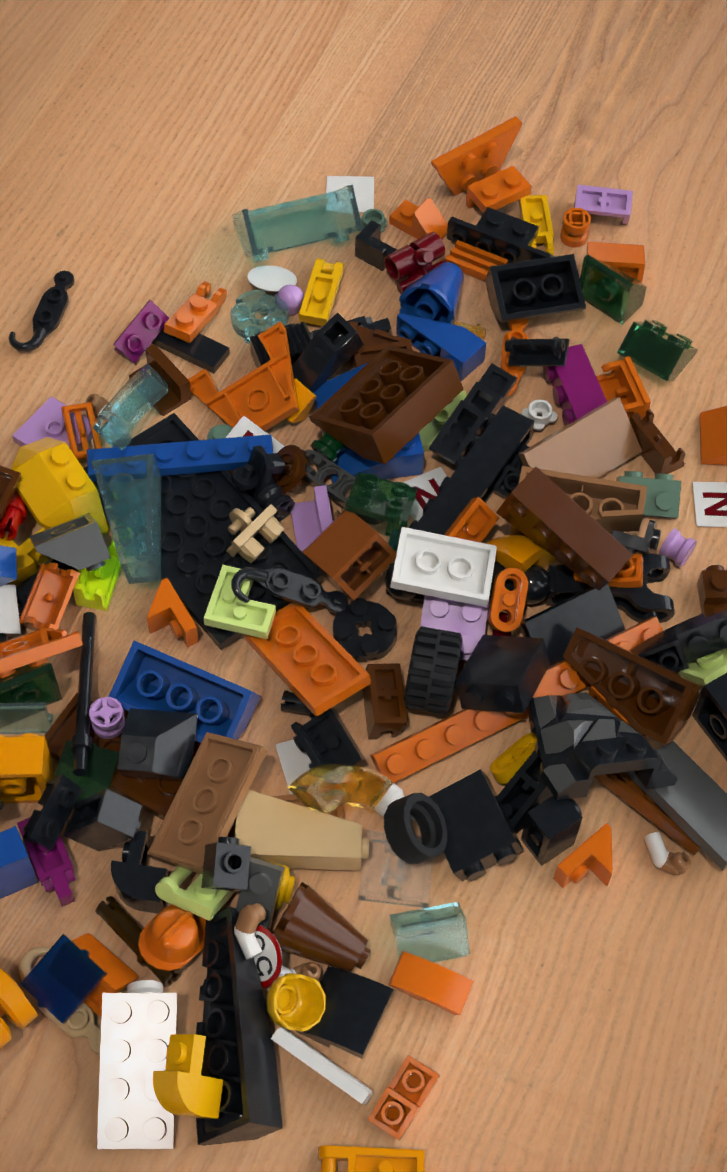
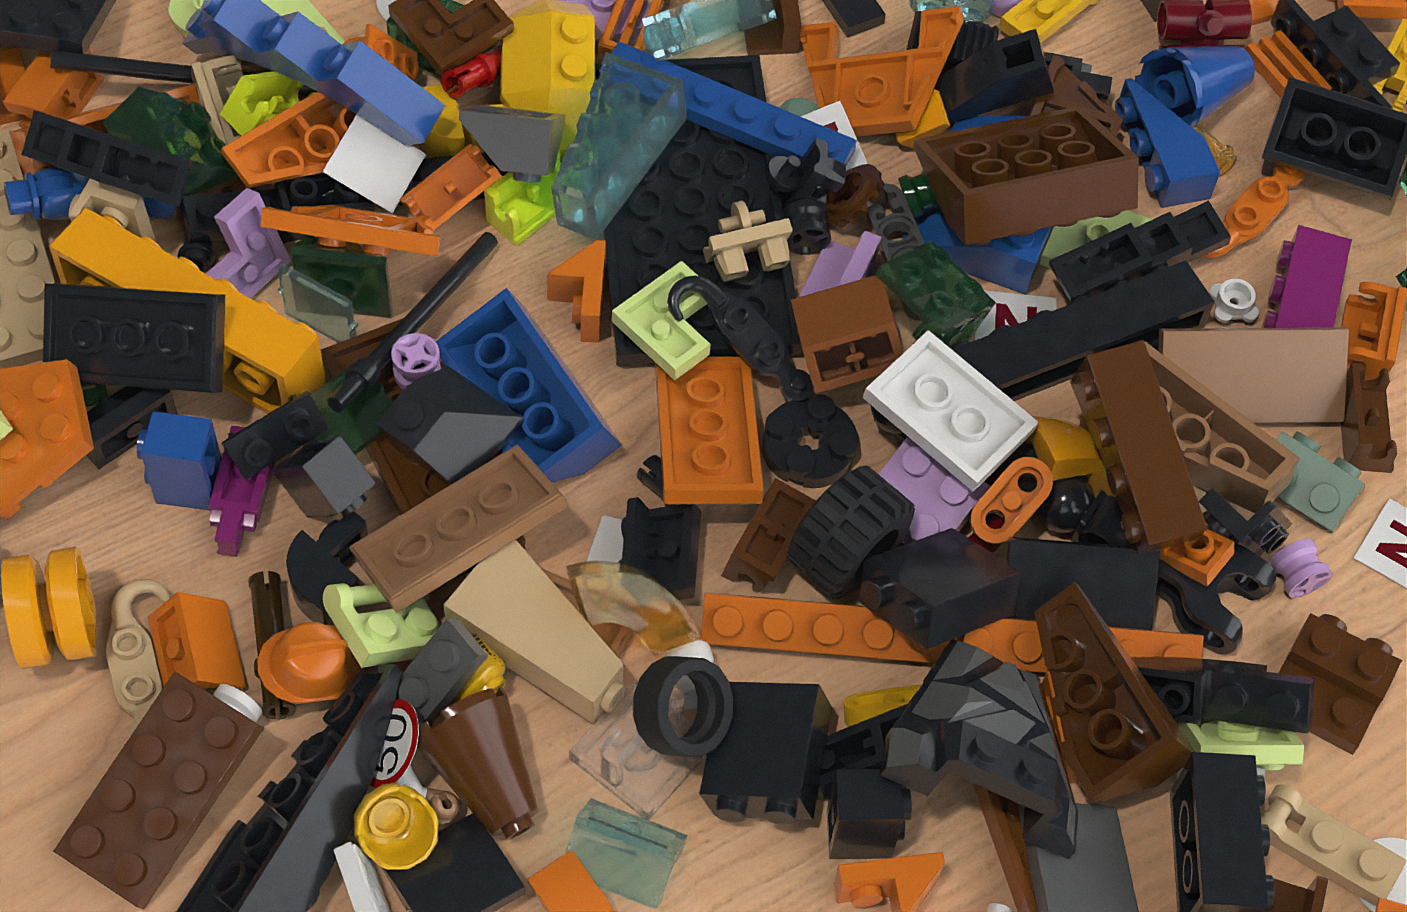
camera: 30 degrees right, 0 degrees up
(63, 978) = (150, 631): clear blue piece -> none
(181, 1086) = (186, 835): yellow brick -> none
(226, 865) = (419, 609): black brick -> none
(245, 928) = (392, 699): arm -> none
(473, 521) = (1037, 382): orange panel -> none
(537, 352) = (1279, 216): black hinge -> none

